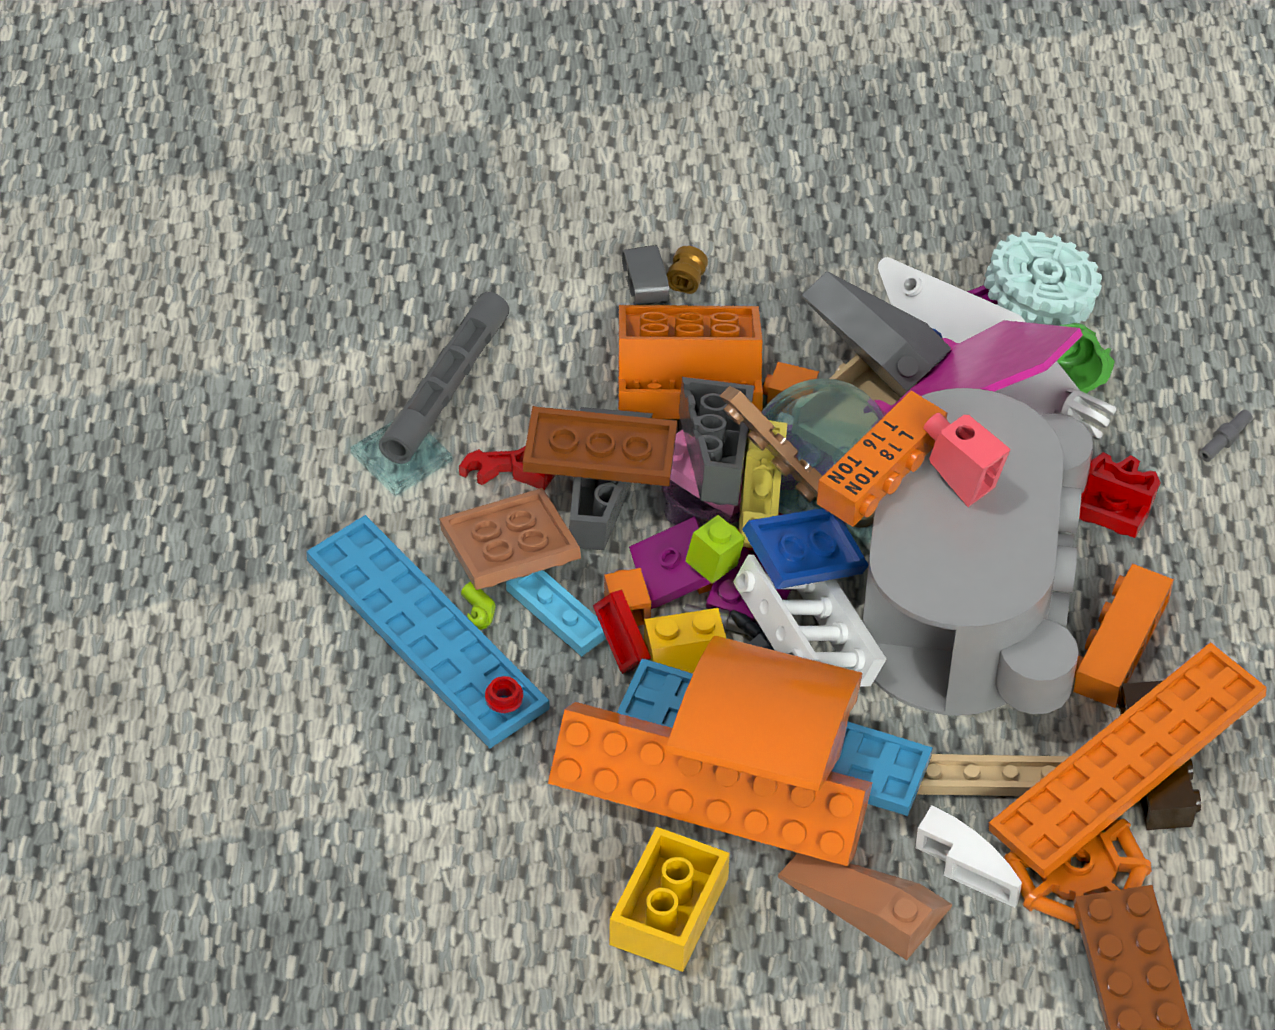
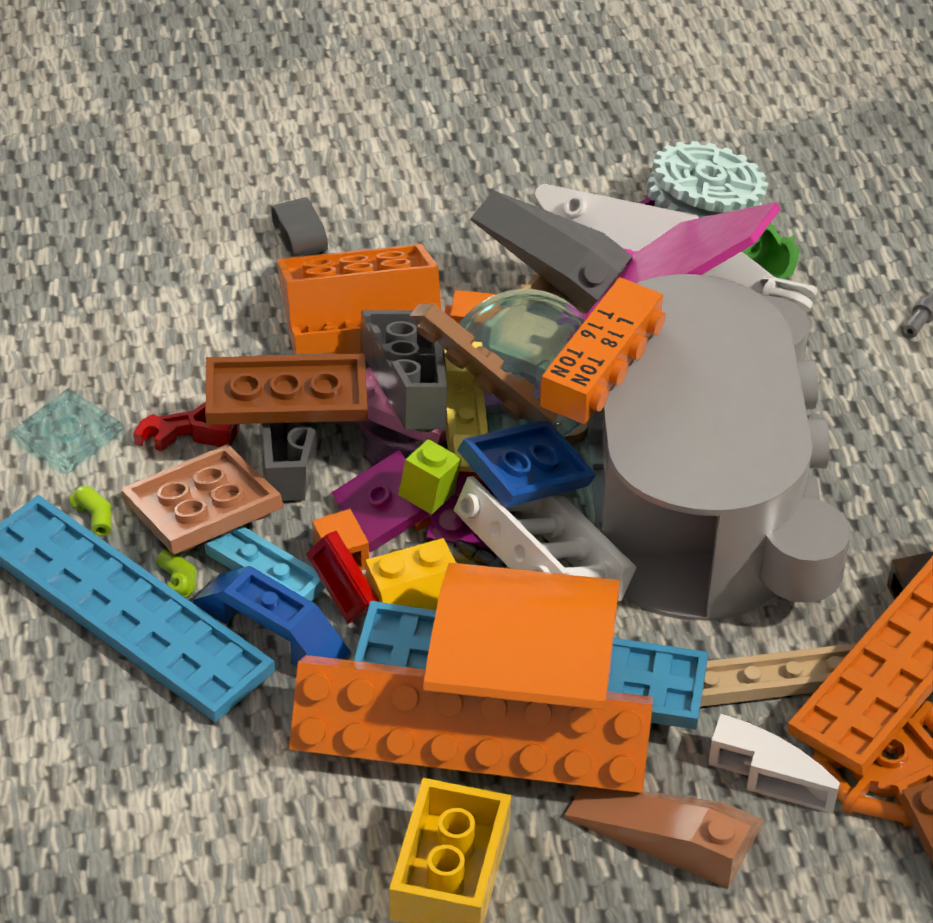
camera: 10 degrees left, 5 degrees down
(410, 524) = (98, 506): none -> lime arm
(443, 378) = (102, 350): dark grey piece -> none
(504, 687) = (223, 651): red plate -> none
(558, 655) = (274, 608): none -> blue slope
(687, 269) = (341, 217): pearl gold wheel -> none
(966, 456) = (694, 333): coral torso -> none
(1118, 494) = (842, 377): red plate -> none
(1122, 634) = (876, 511): orange brick -> none

